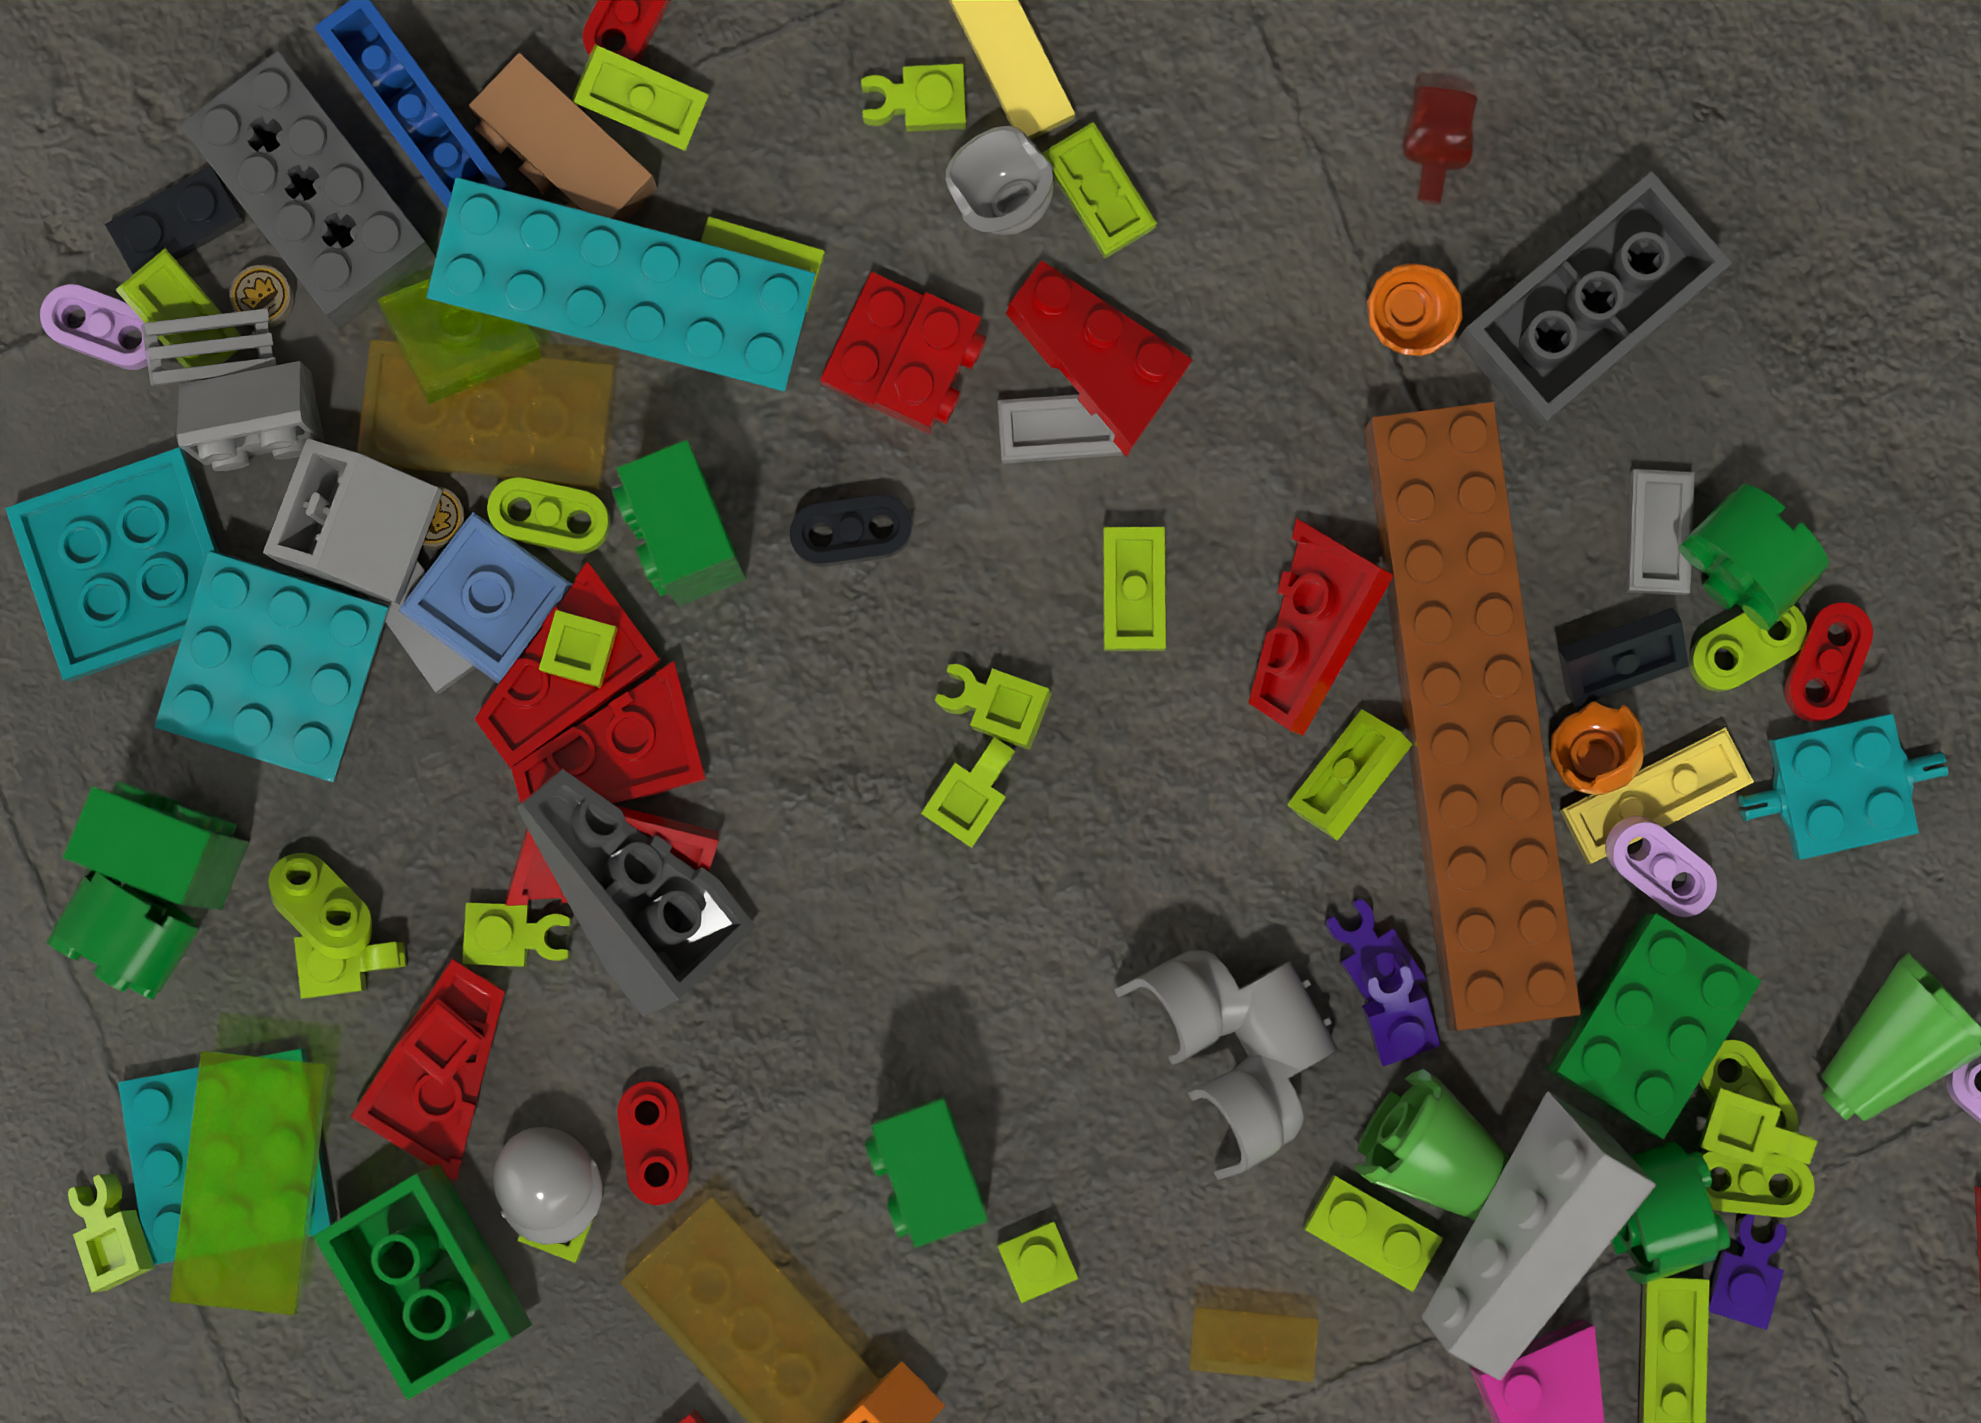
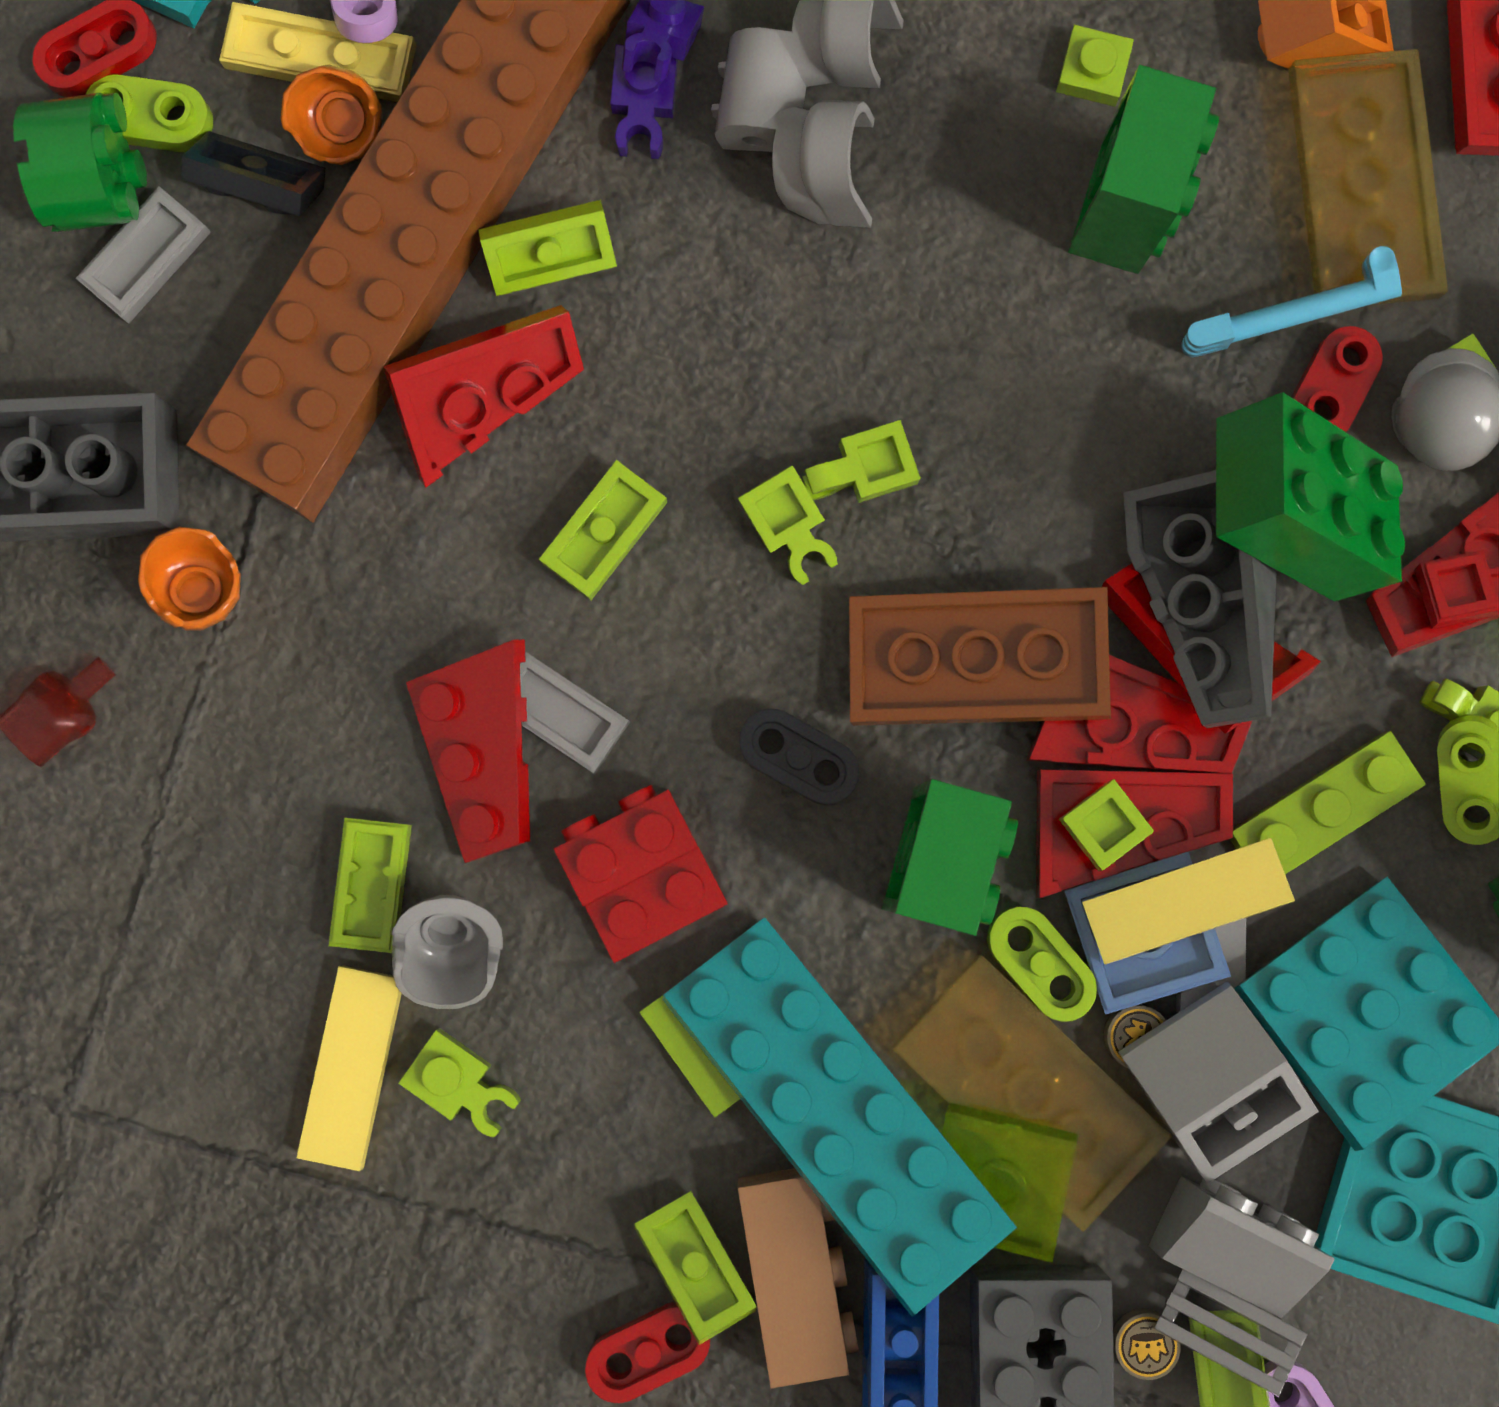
camera: 140 degrees left, 0 degrees up
(417, 801) = (1333, 802): none -> lime plate
(473, 637) = (1188, 901): none -> light yellow tile
(503, 935) = (1335, 639): lime plate -> none
(609, 1007) = (1308, 498): none -> green brick
(770, 707) = (979, 657): none -> dark orange plate
(772, 1113) = (1218, 332): none -> medium azure hinge

